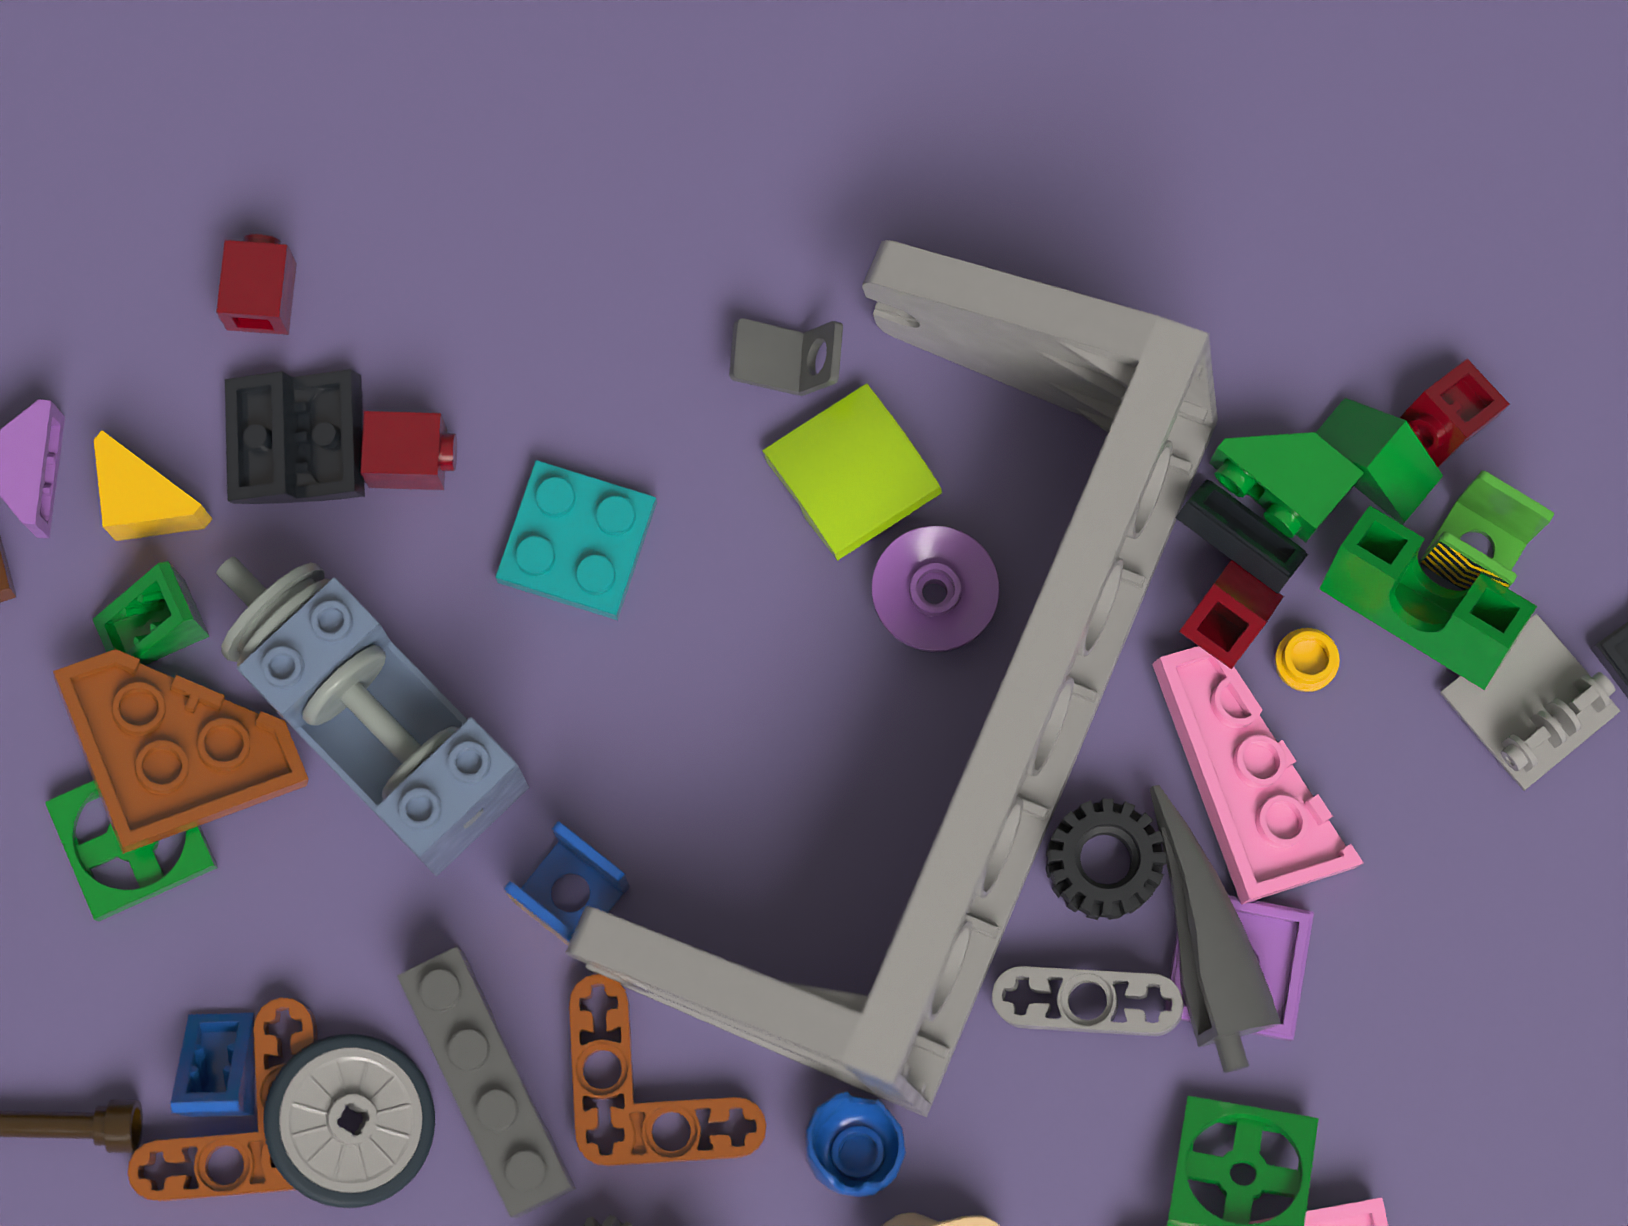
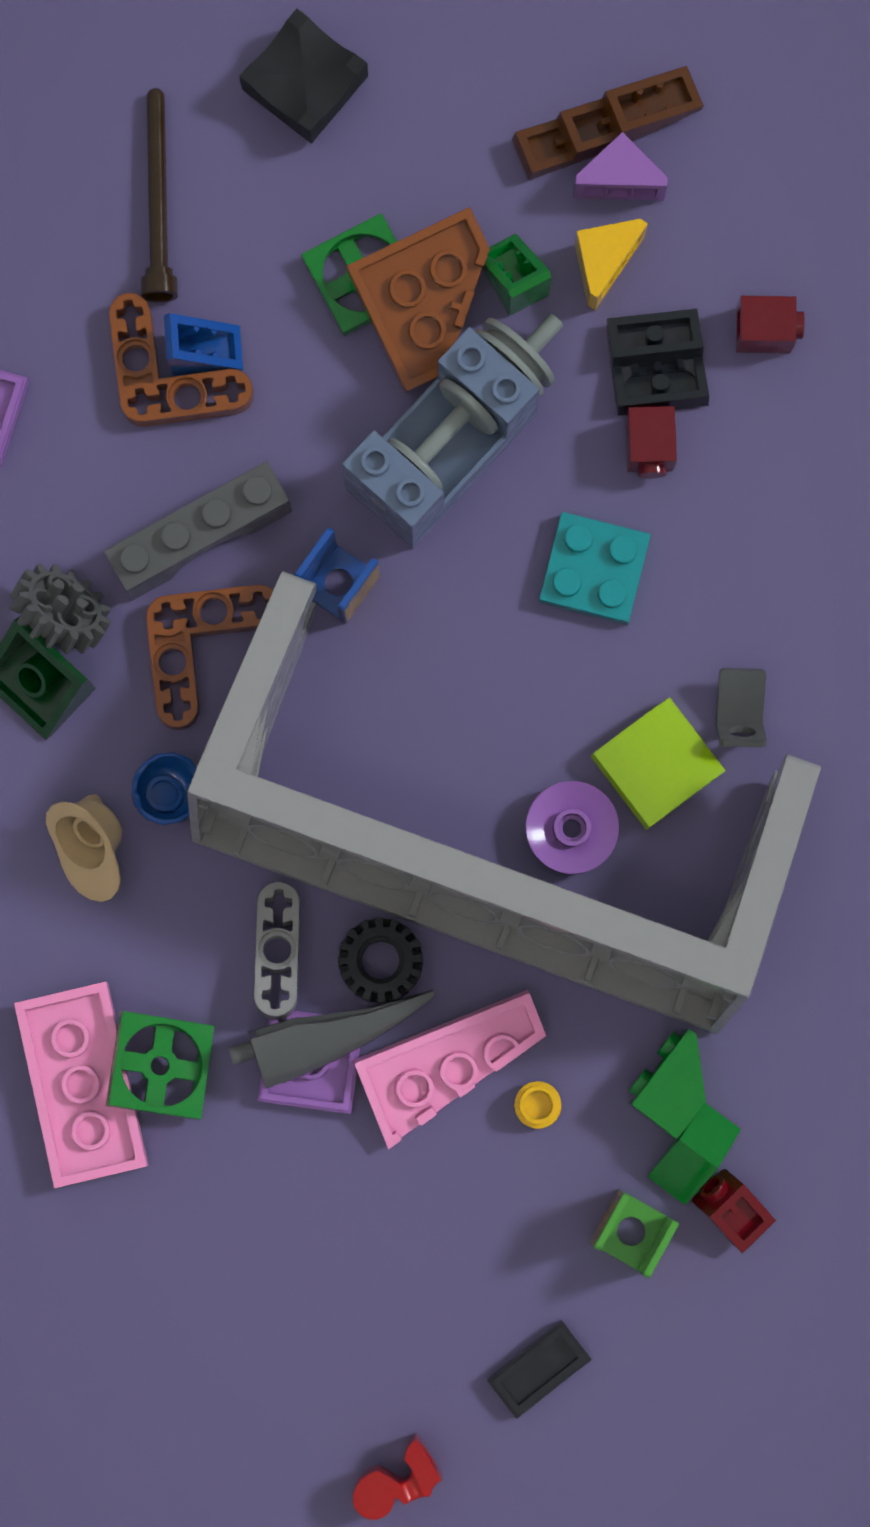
camera: 90 degrees right, 5 degrees up
(326, 1159) = (186, 413): light grey wheel -> none
(1231, 614) = (565, 1044): dark red brick -> none
(1242, 535) = (626, 1052): black tile -> none
(1382, 580) = (597, 1158): green arch -> none
(1534, 705) = (516, 1273): light grey hinge -> none

